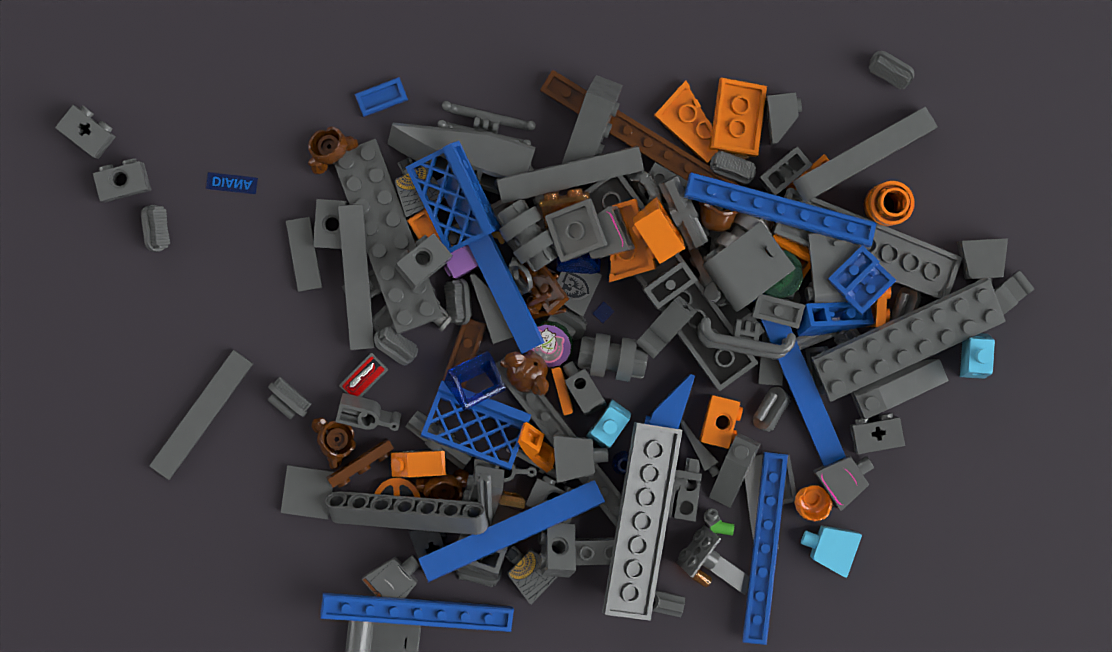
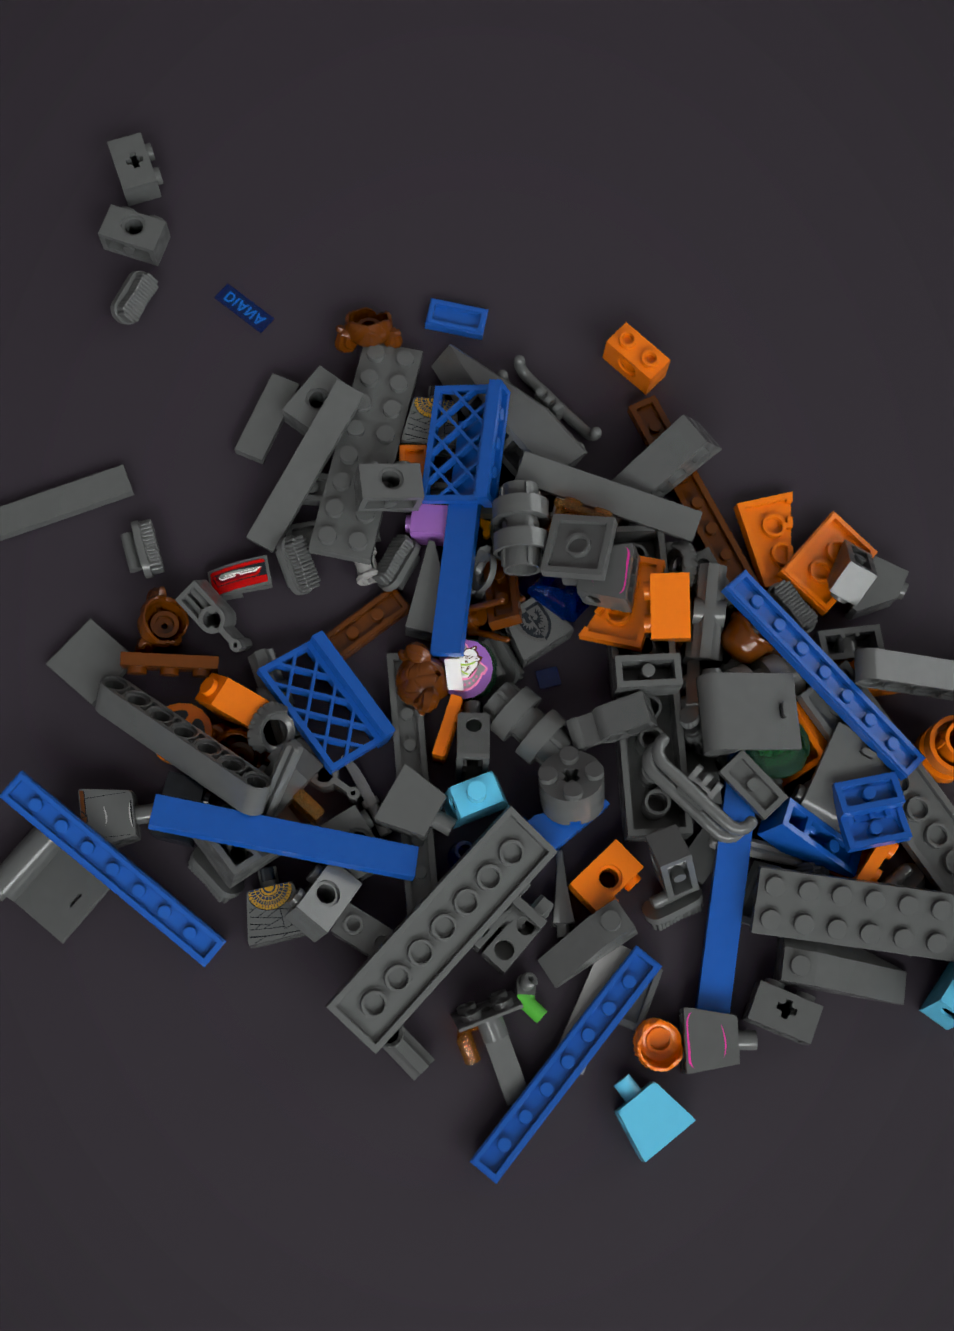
camera: 25 degrees right, 15 degrees down
(446, 460) = (268, 712): none -> dark grey piece
(469, 370) = (362, 639): clear blue tile -> none
(523, 50) = (636, 358): none -> orange brick
(535, 448) = (375, 775): orange slope -> none
(544, 355) = (453, 674): none -> white sticker
(665, 383) = (571, 786): none -> dark grey brick
(756, 390) = (672, 862): none -> dark grey brick
(759, 119) = (851, 574): none -> slope

